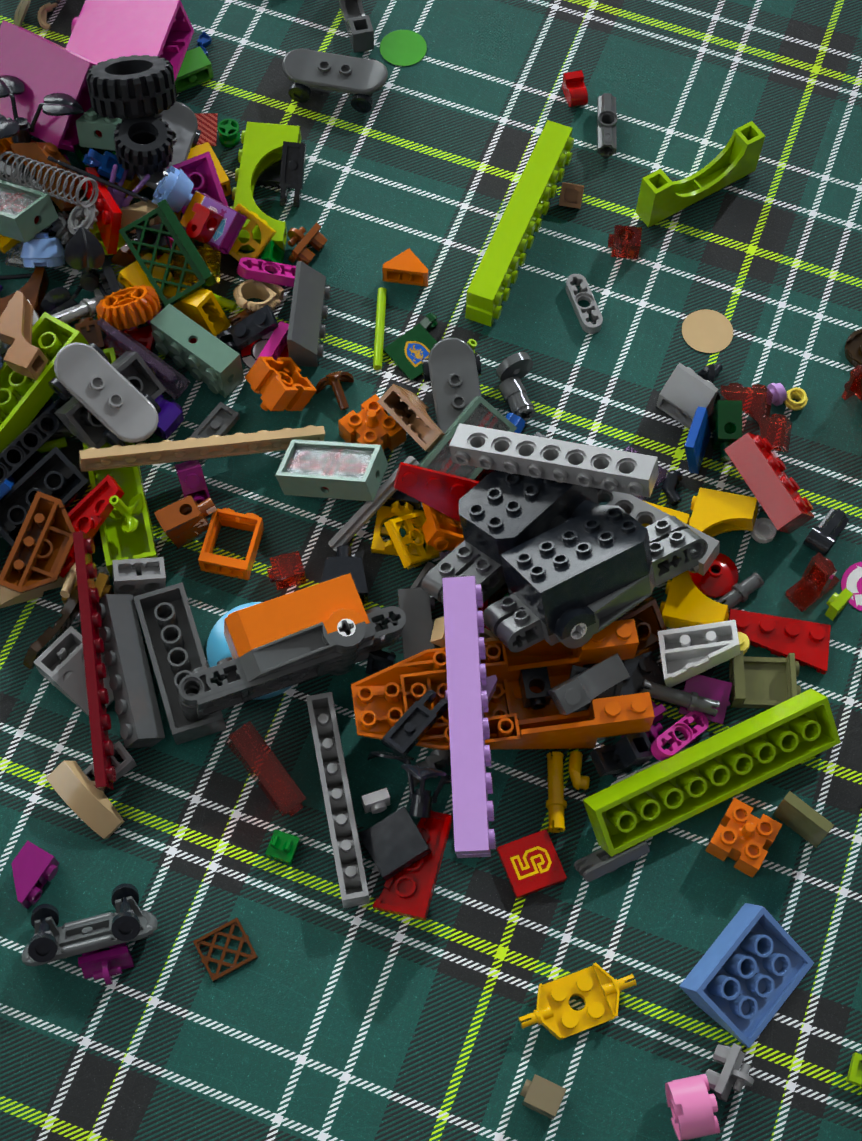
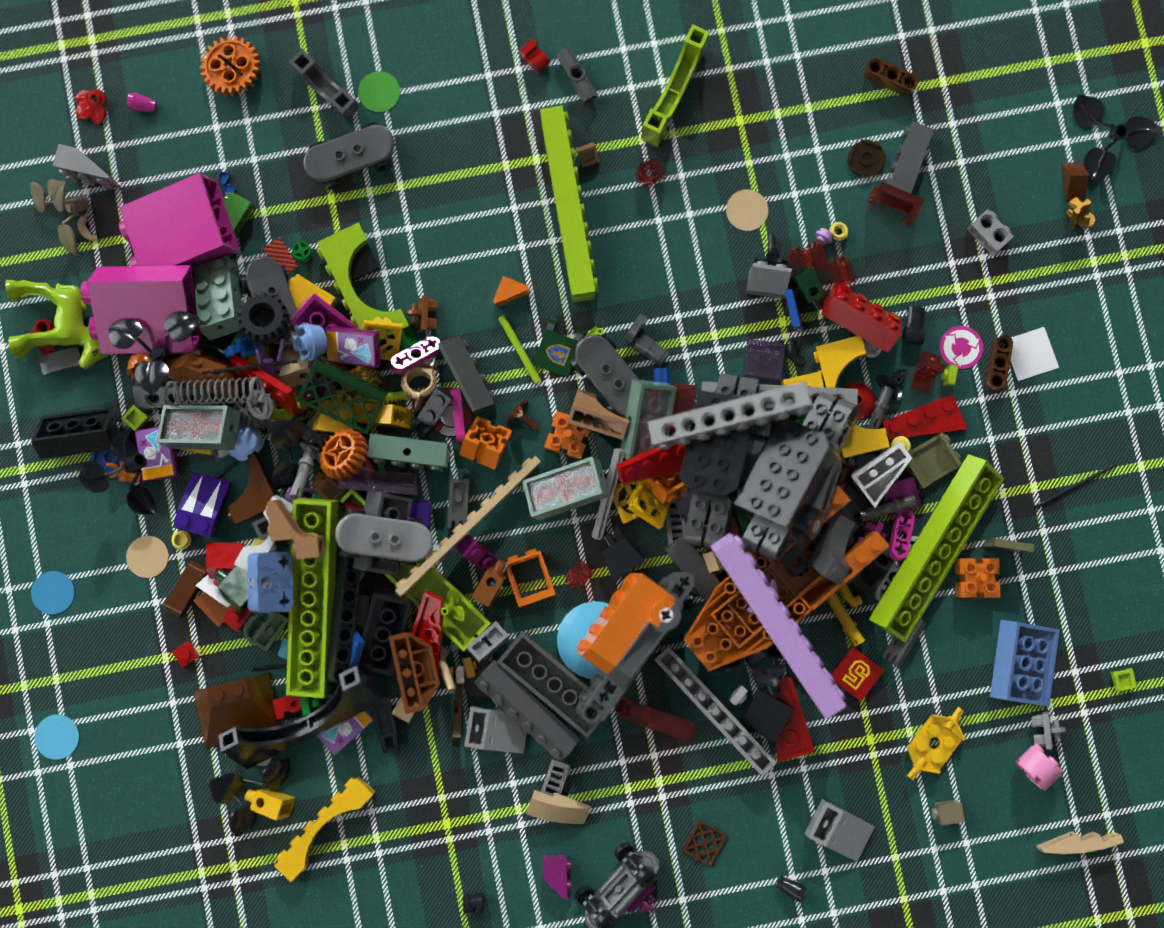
camera: 30 degrees left, 20 degrees up
(94, 668) = (499, 715): dark red plate -> none
(131, 86) = (212, 267): black tyre -> none
(203, 224) = (353, 356): red leg -> none
(282, 847) = (698, 759): green tile -> none
(291, 1068) = (791, 888): none -> black cone
(292, 171) = (376, 261): black hinge -> none
(394, 1032) = (839, 830): none -> light grey slope
(414, 724) = (743, 646): black hinge -> none
(583, 312) = (635, 236): light grey beam -> none
(771, 575) = (897, 378): none -> black plant

